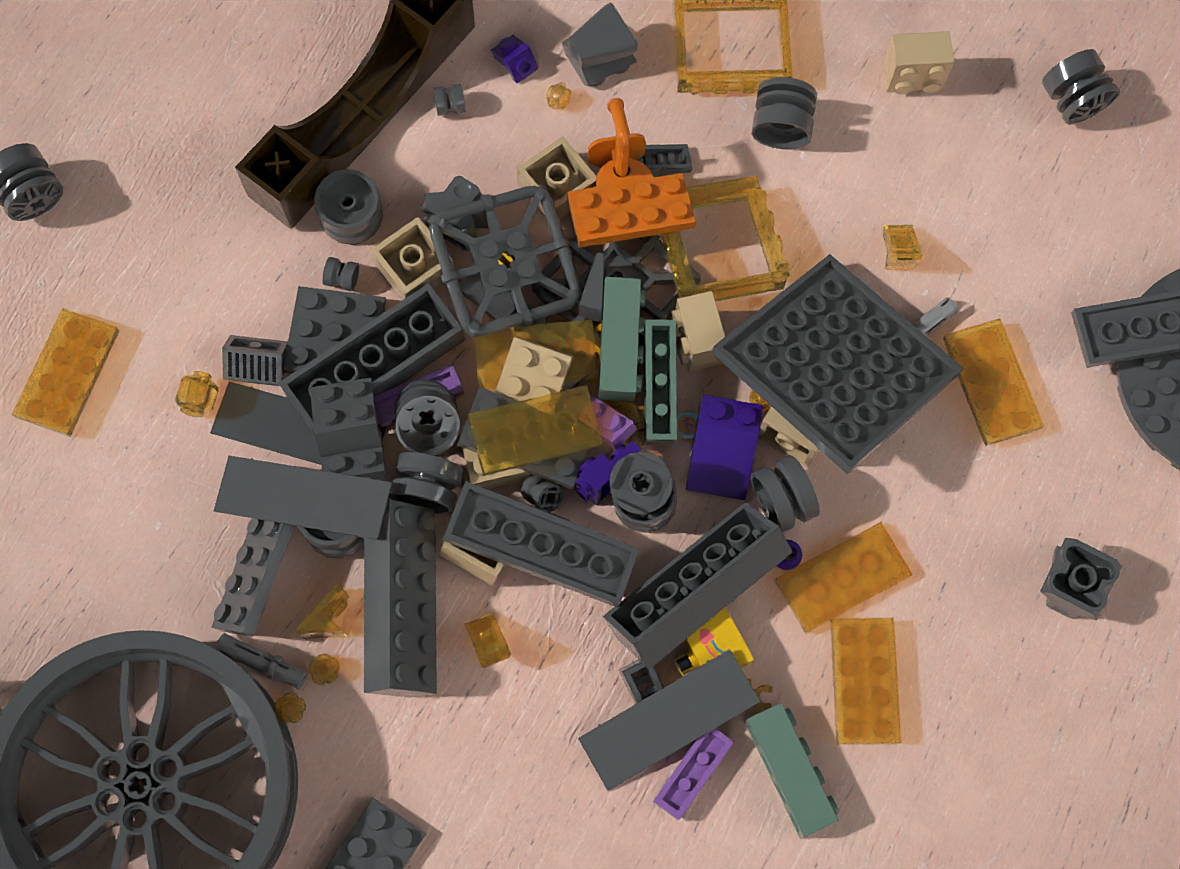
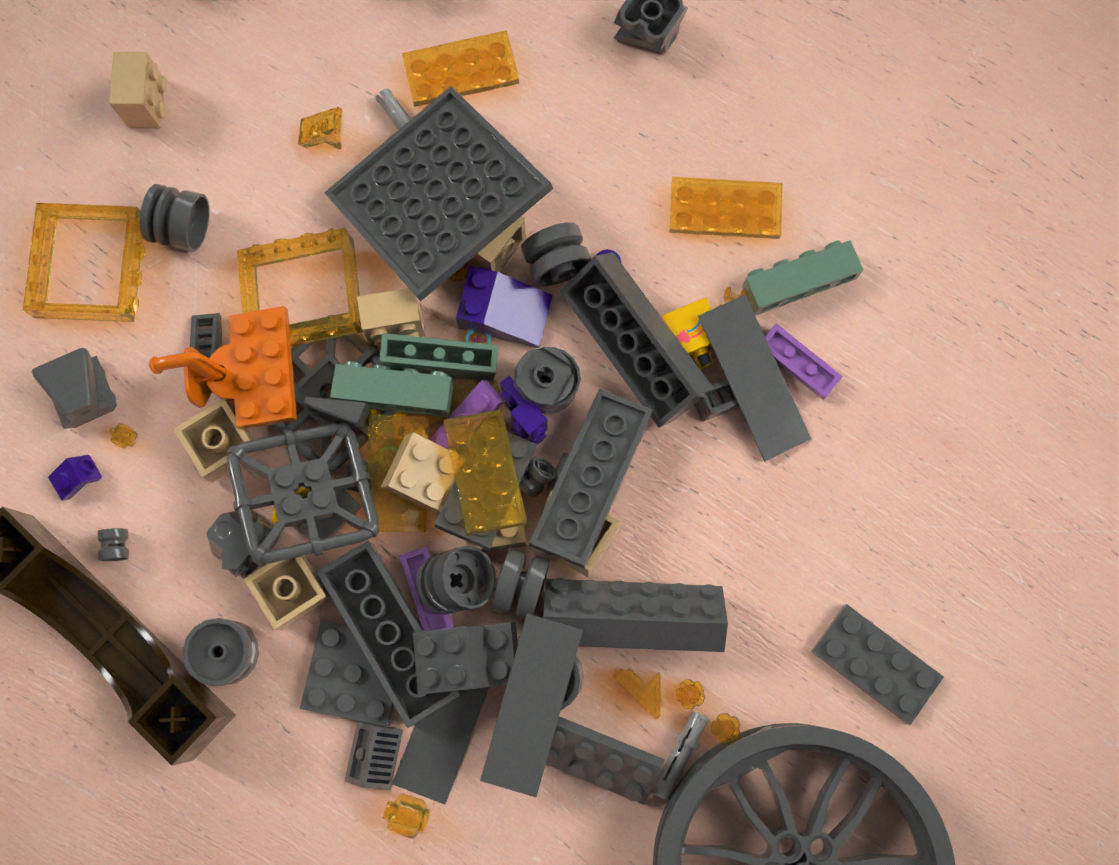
camera: 85 degrees left, 5 degrees up
(340, 274) = (288, 670): dark grey wheel -> none
(488, 640) = (673, 536): clear yellow slope -> none
(843, 577) = (631, 217): clear yellow plate -> none

